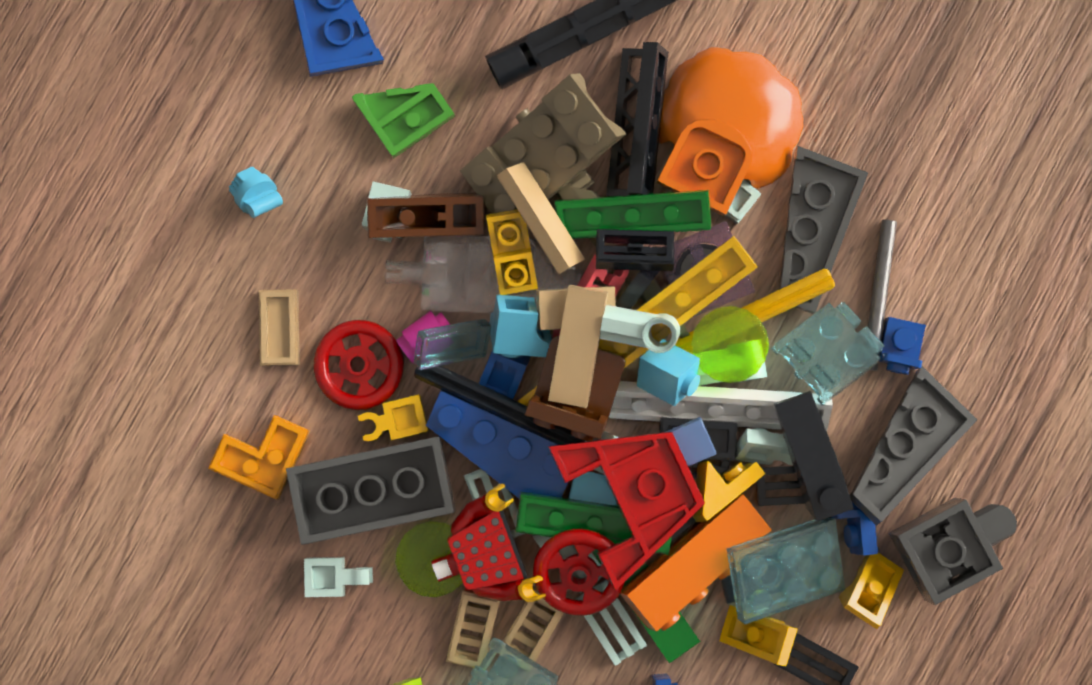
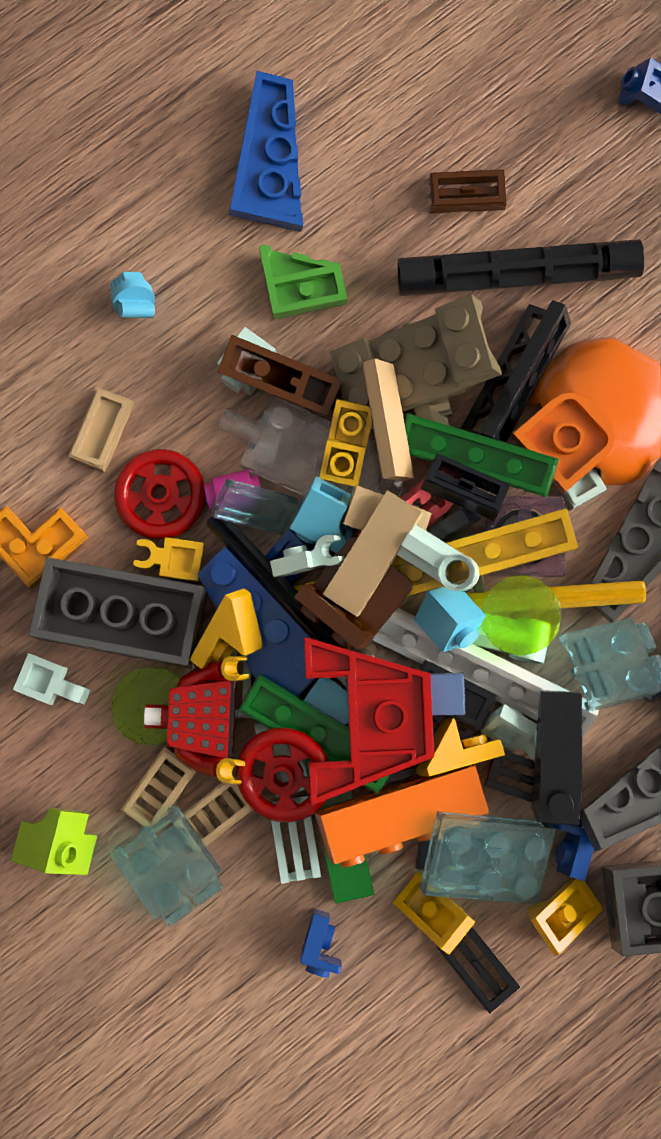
camera: 25 degrees right, 5 degrees down
(479, 462) = (231, 627): none -> yellow slope
(513, 376) = (299, 560): none -> light aqua plate

